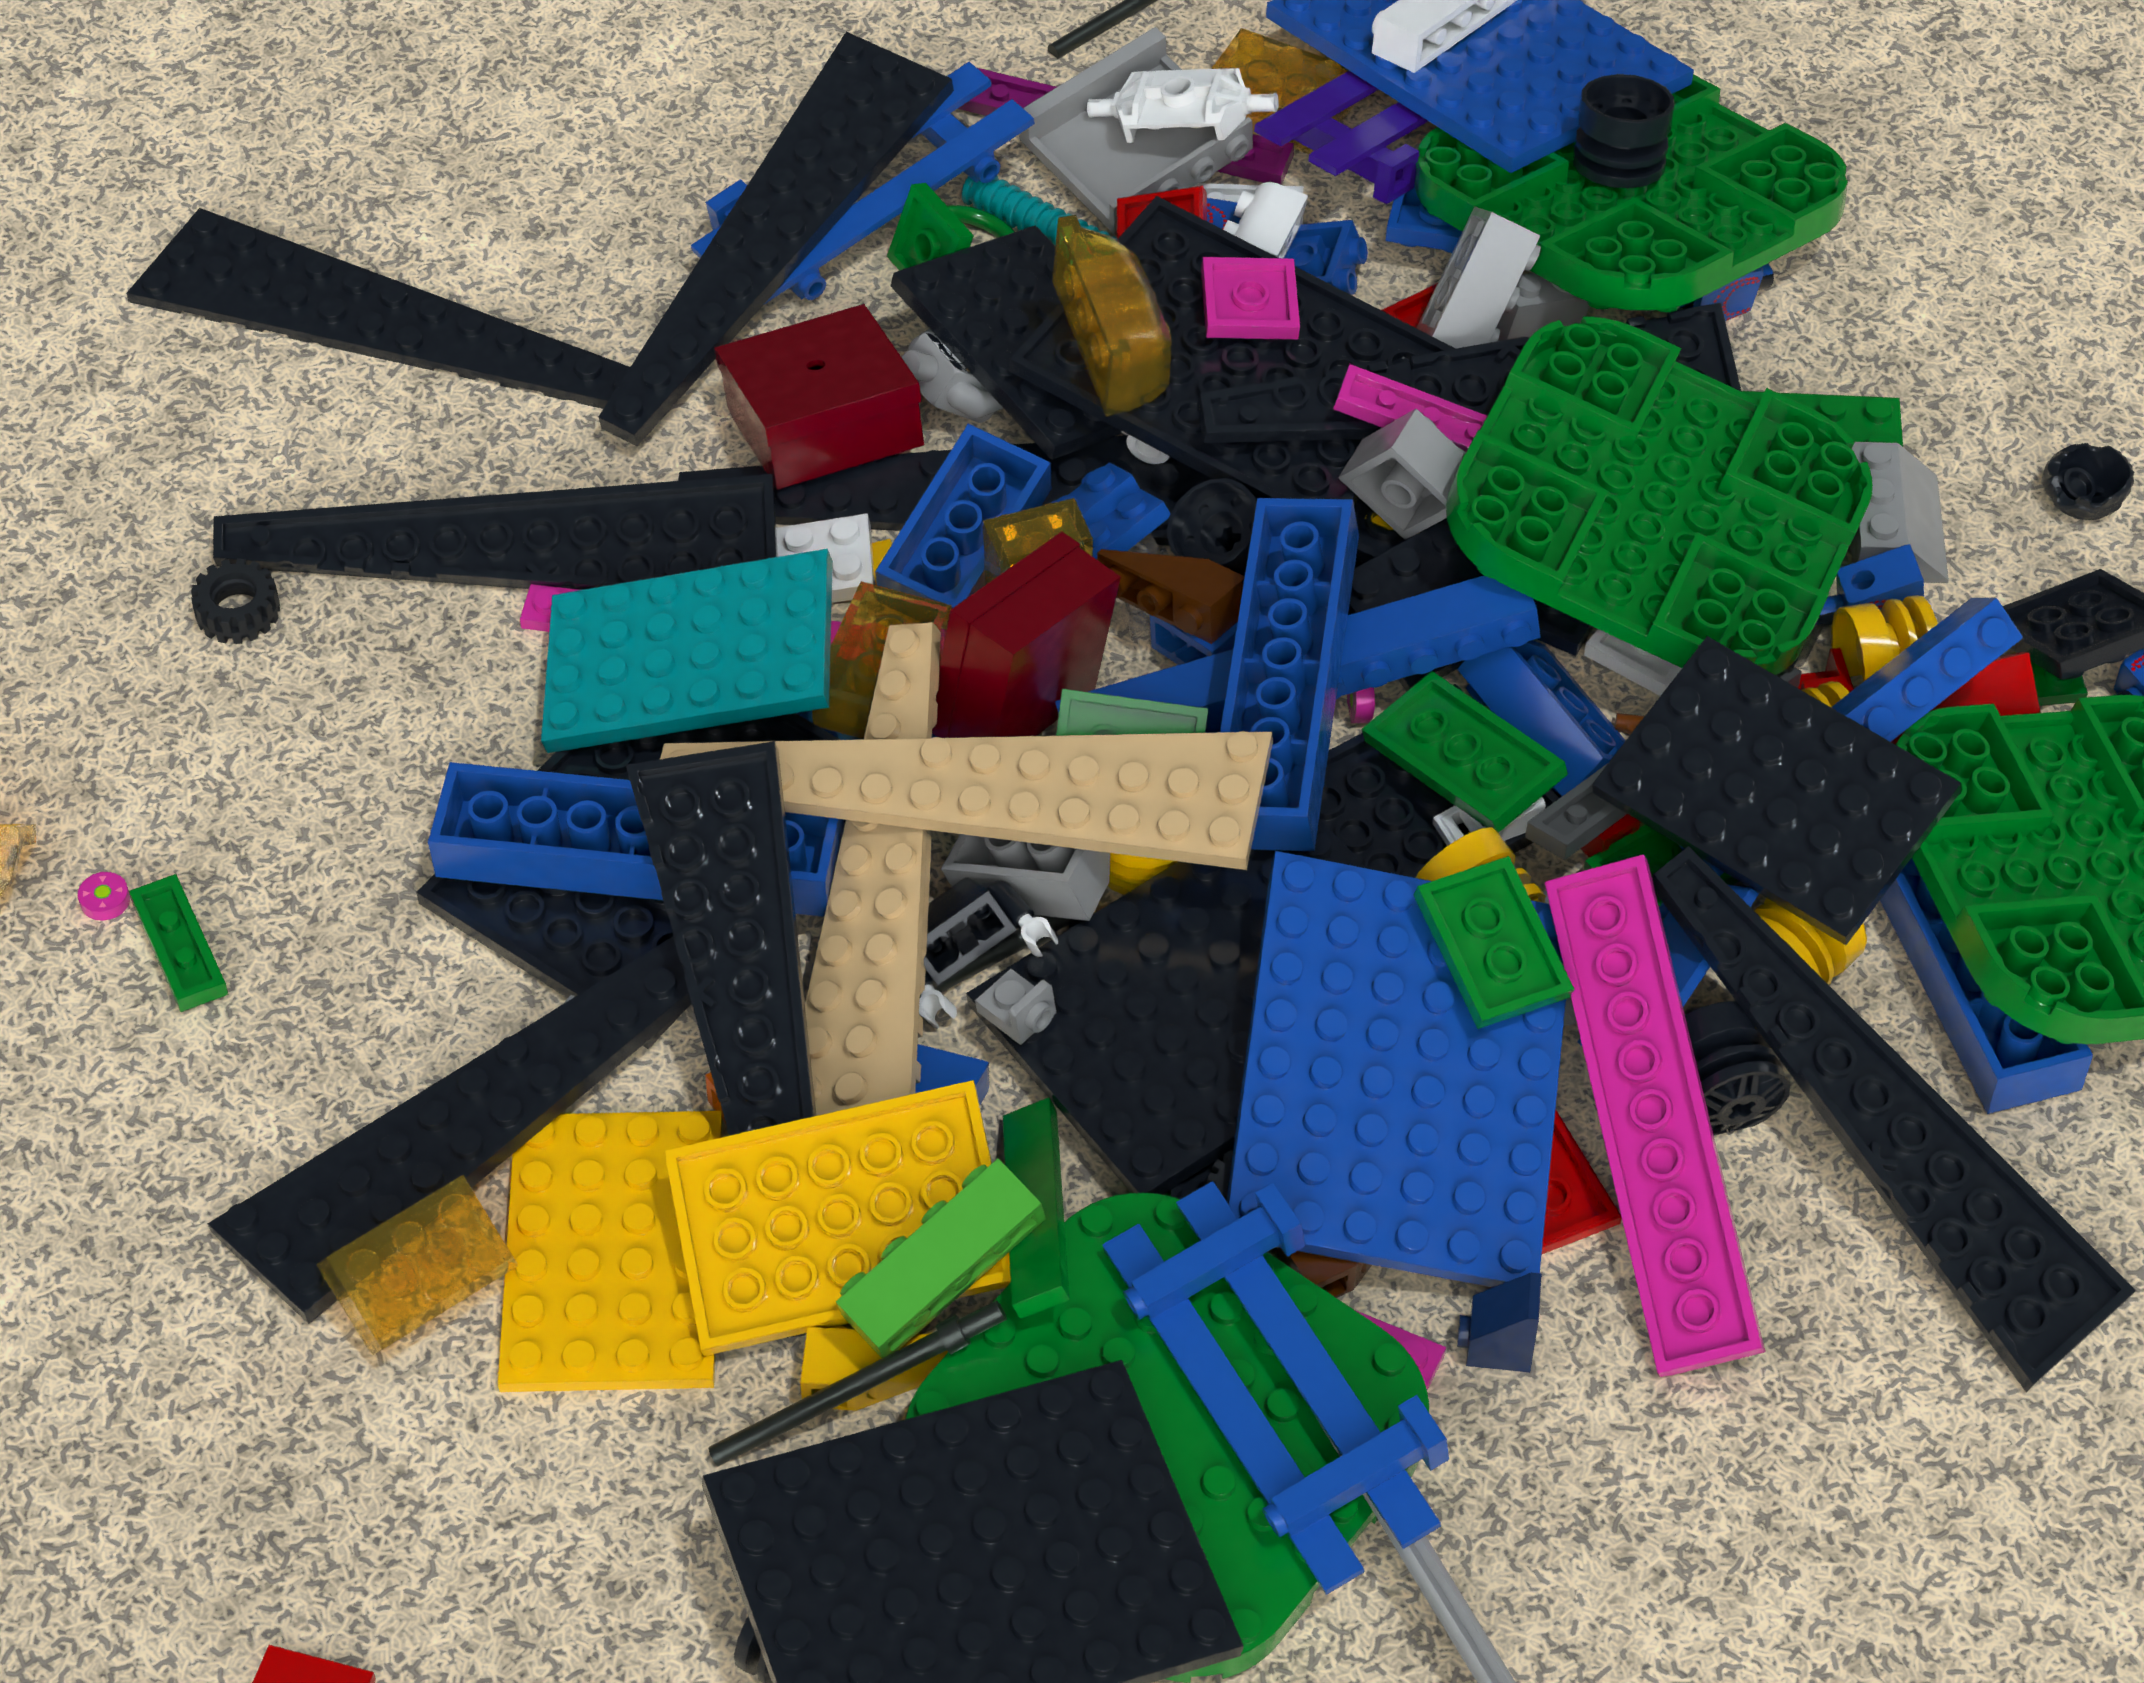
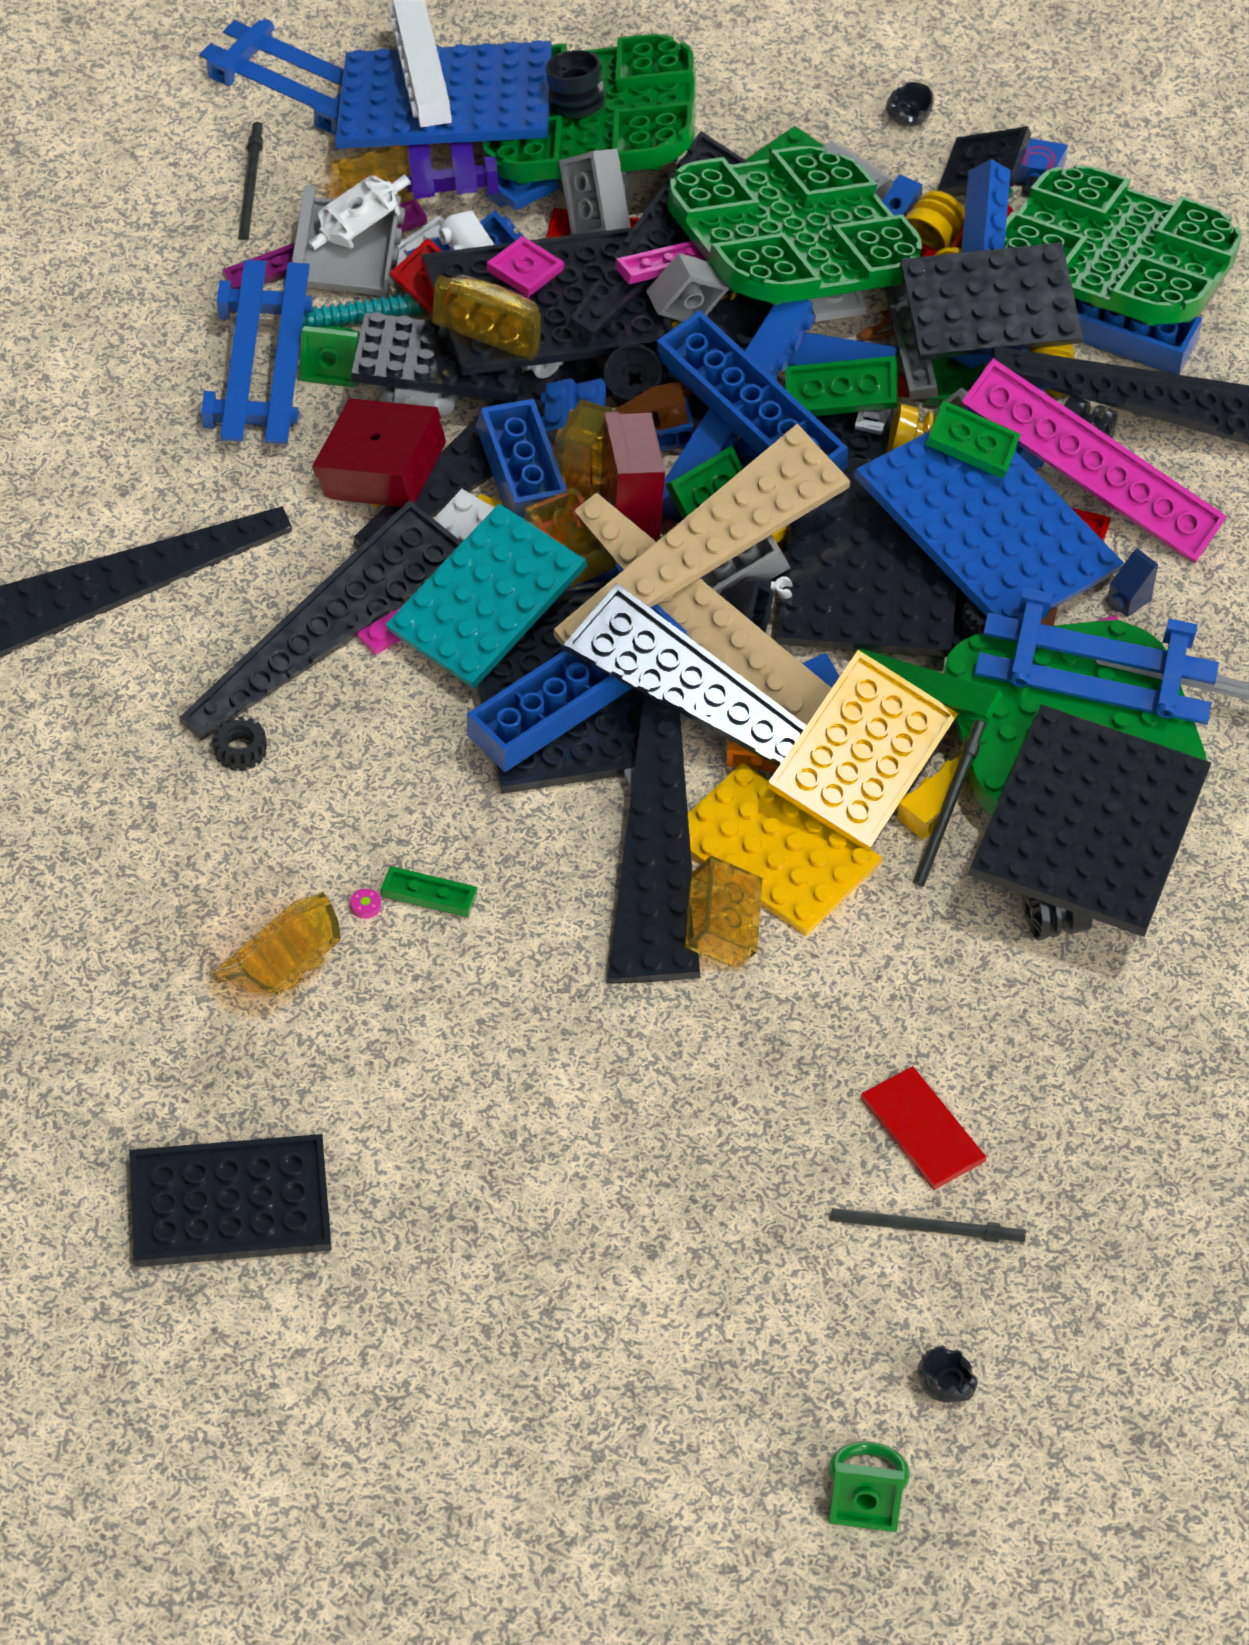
camera: 50 degrees left, 0 degrees up
(824, 159) = (237, 345): black wing -> none
(940, 1258) = (932, 724): bright green brick -> none
(1017, 1006) = (813, 620): light grey bracket -> none

